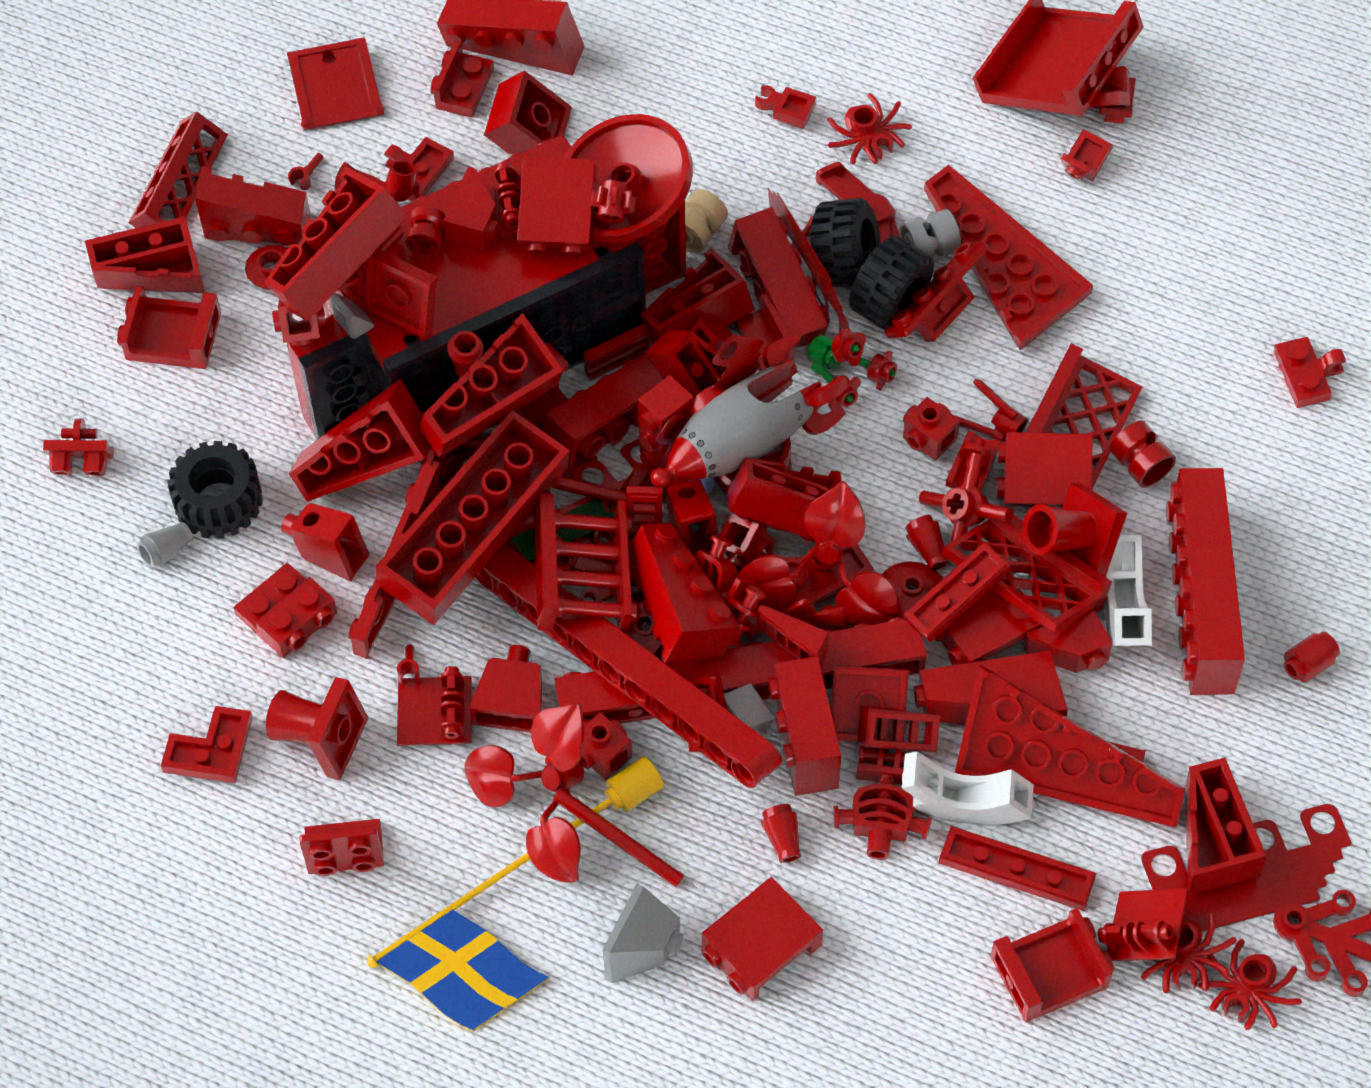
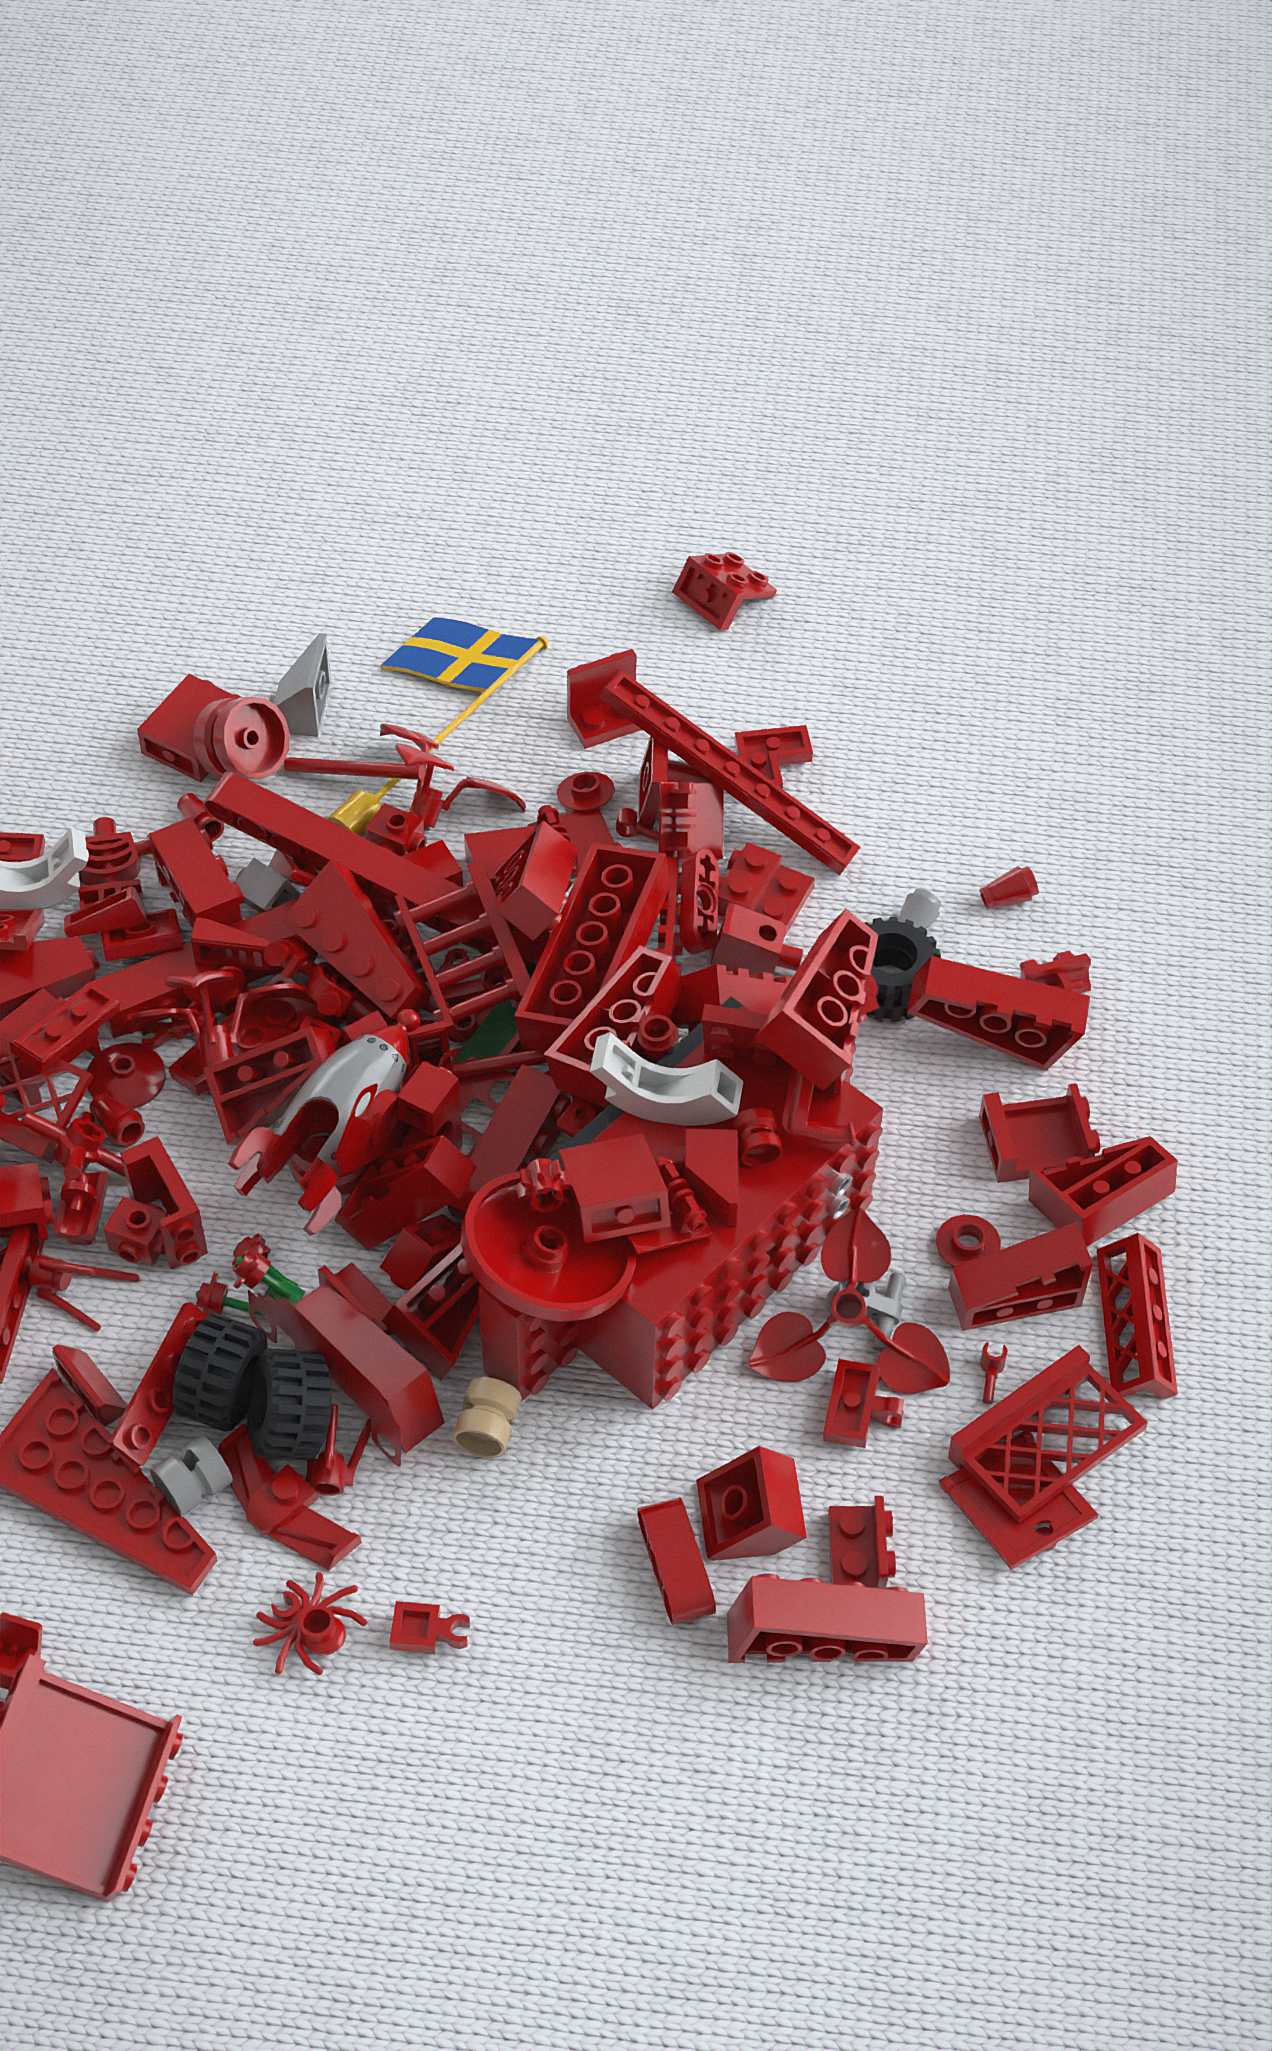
camera: 160 degrees right, 5 degrees down
(66, 548) = (1010, 888): none -> red cone
(149, 401) = (1000, 1010): none -> red wedge
(155, 967) = (718, 584): none -> red bracket
(270, 696) = (729, 772): none -> red tile
(299, 131) = (1016, 1414): none -> red fence
(327, 662) = (690, 818): none -> red hinge
(351, 589) = (699, 925): none -> red beam
(376, 716) = (627, 825): none -> red hand
(408, 779) = (575, 799): none -> red piece
(478, 281) = (665, 1094): none -> white arch
(504, 580) = (535, 881): none -> red wedge
(595, 94) = (676, 1561): none -> red beam
(721, 875) = (241, 737): none -> red wheel
(907, 459) = (154, 1177): none -> red panel
(993, 331) = (89, 1384): none -> red slope

